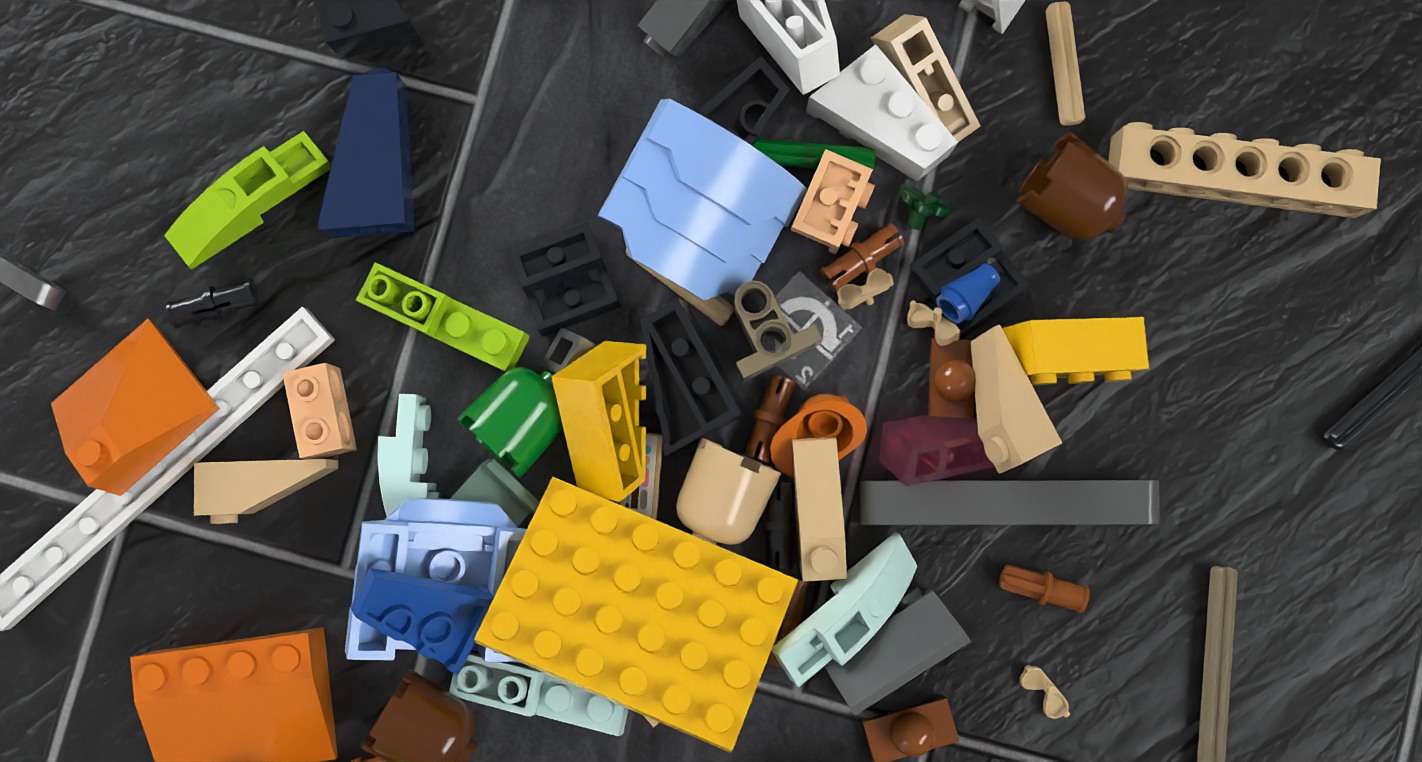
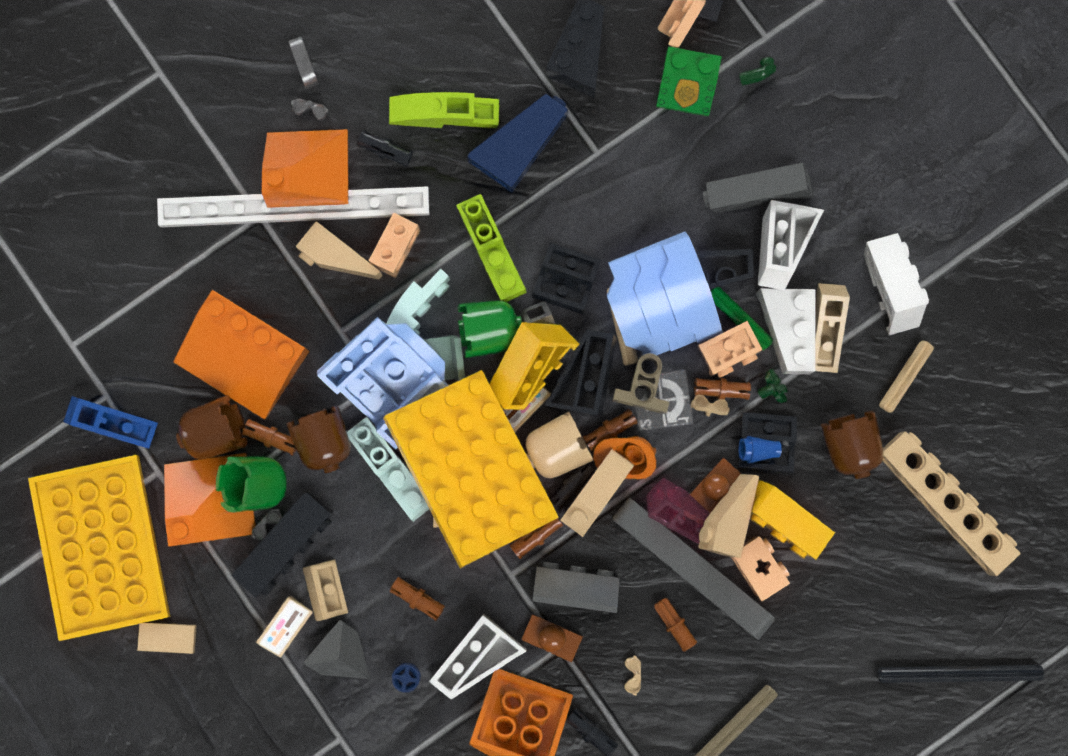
camera: 35 degrees right, 0 degrees up
(69, 336) = (301, 106): none -> flat silver piece
(423, 612) = (370, 385): blue wing -> none
(852, 615) = (570, 556): light aqua slope -> none
(922, 316) = (728, 443): tan piece -> none
(1114, 434) = (761, 583): none -> light nougat brick

